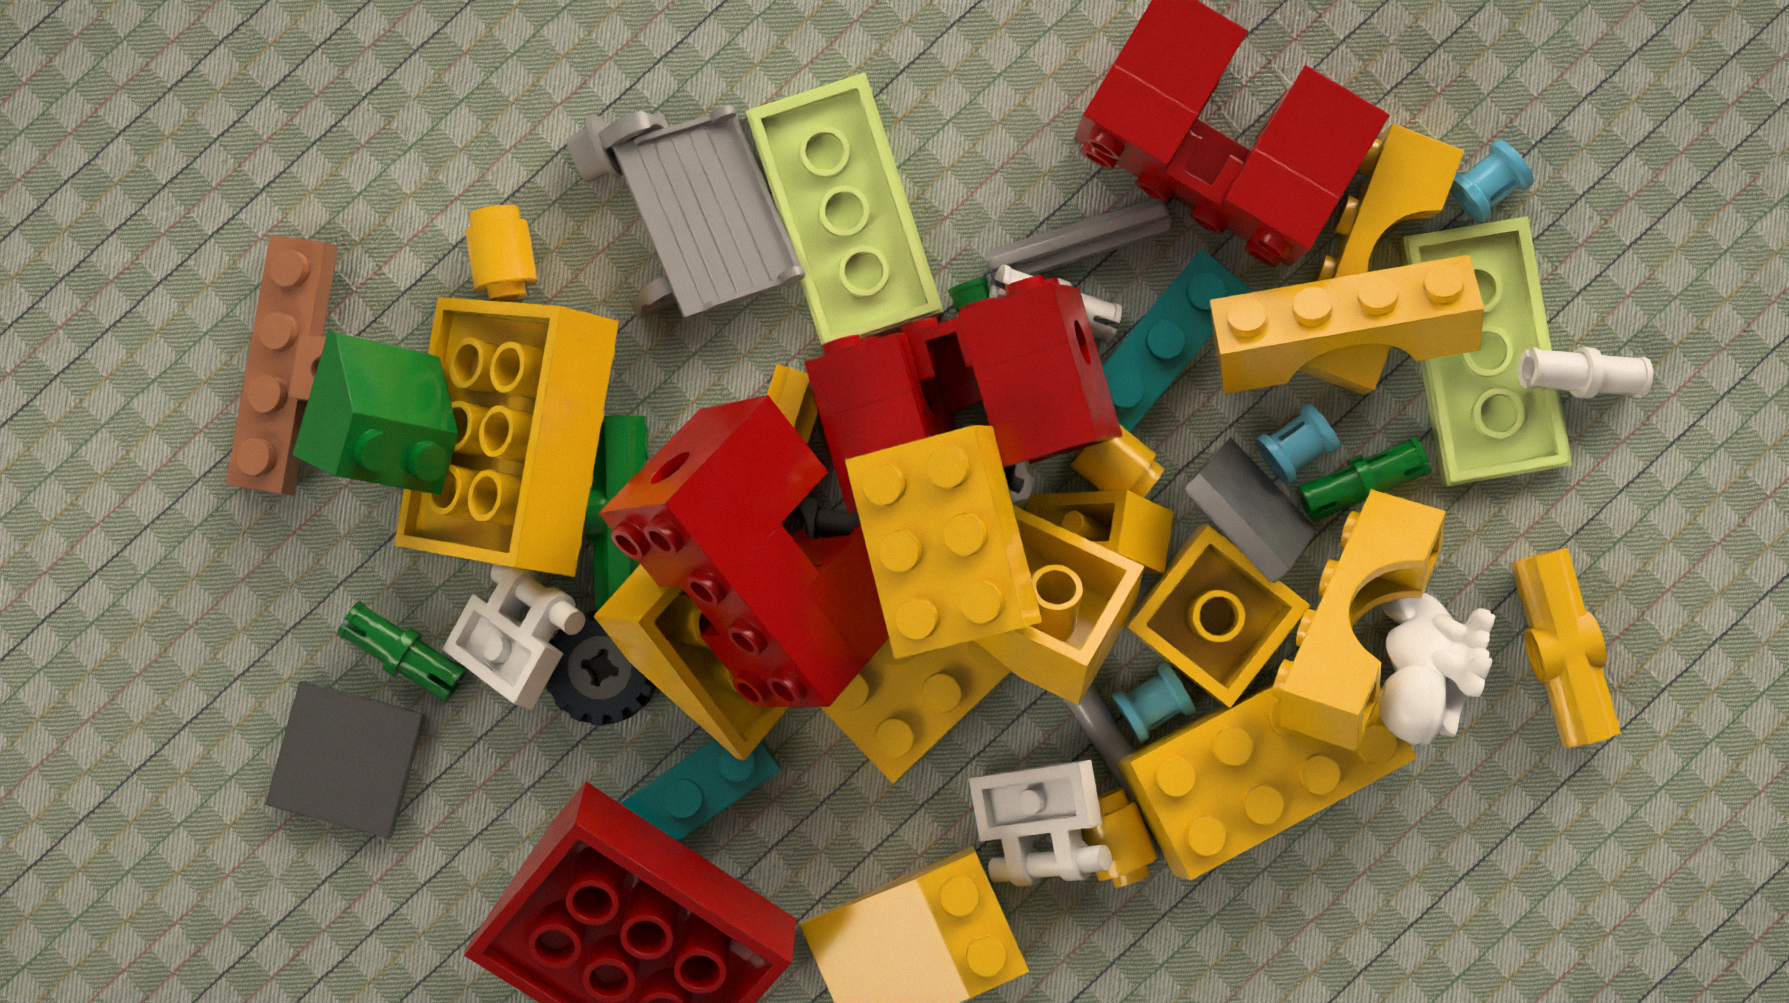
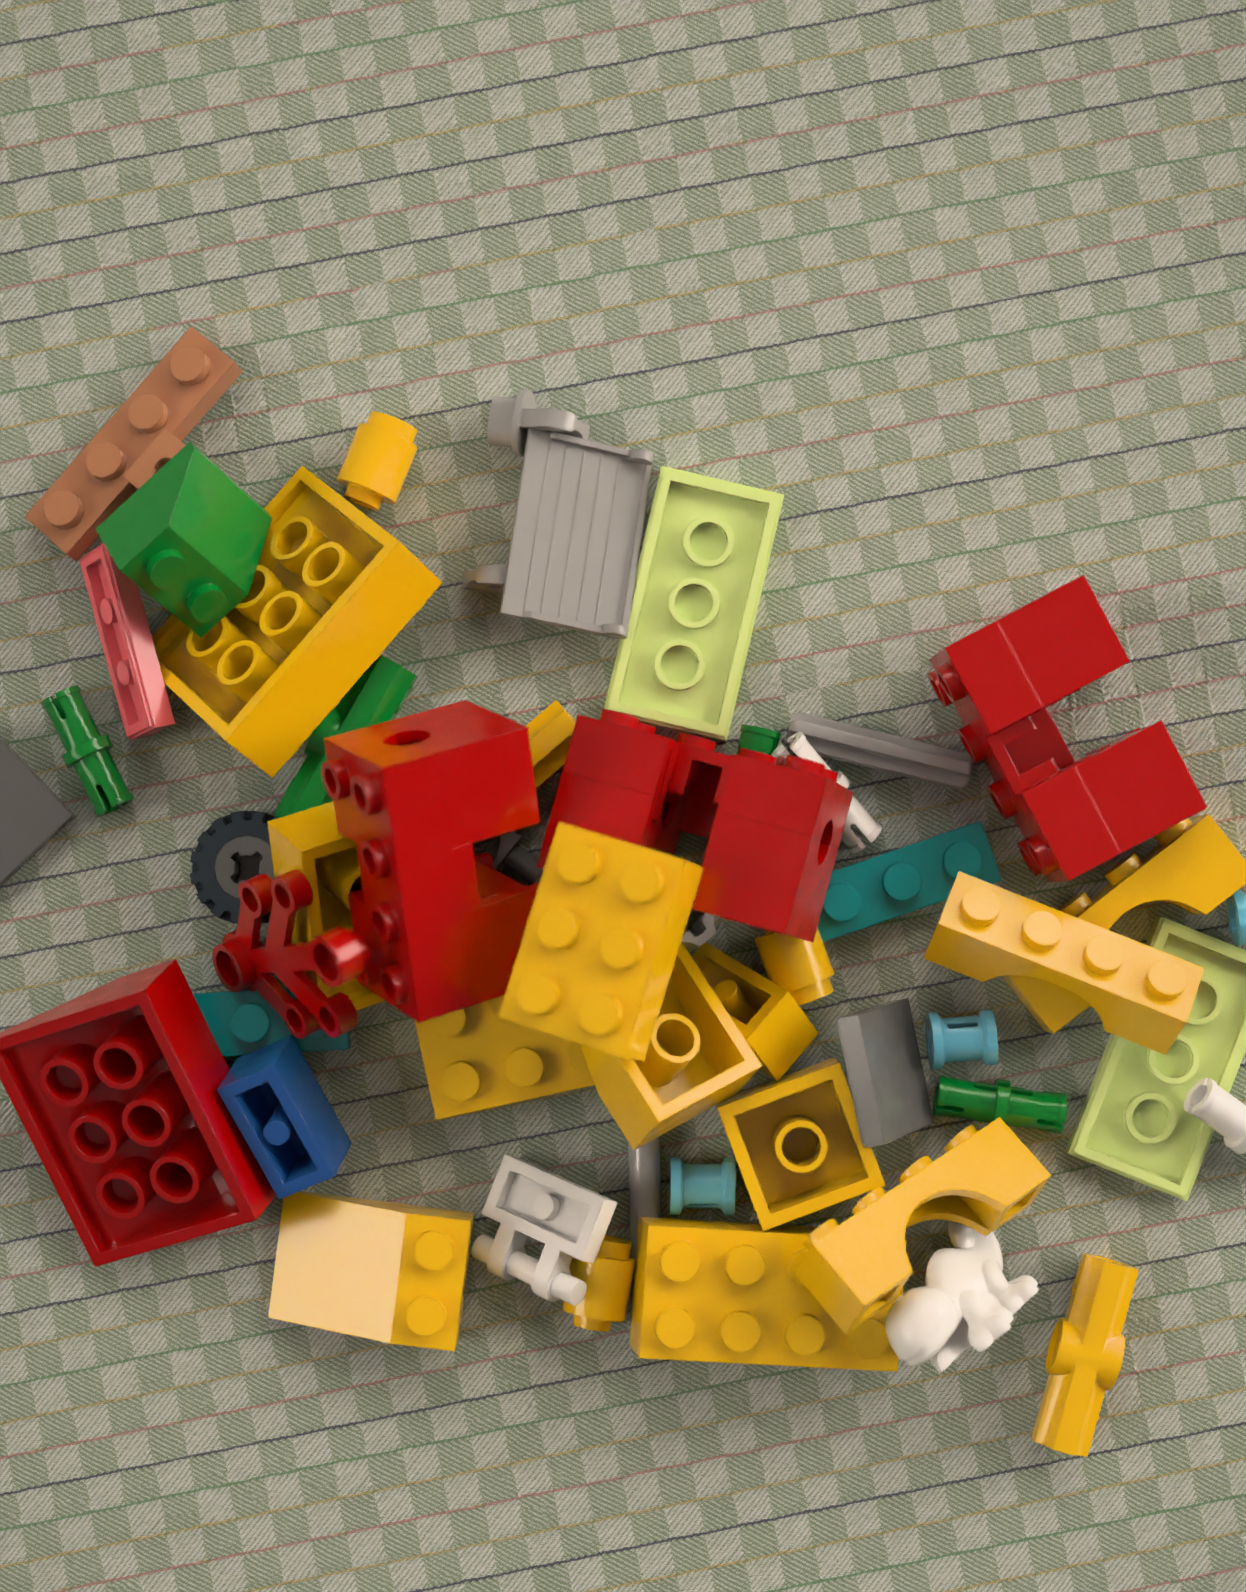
camera: 25 degrees right, 0 degrees up
(380, 540) = (127, 646): none -> coral tile
(511, 653) = (177, 808): white plate -> none
(721, 693) = (248, 964): none -> red plant
(762, 860) = (285, 1117): none -> blue brick

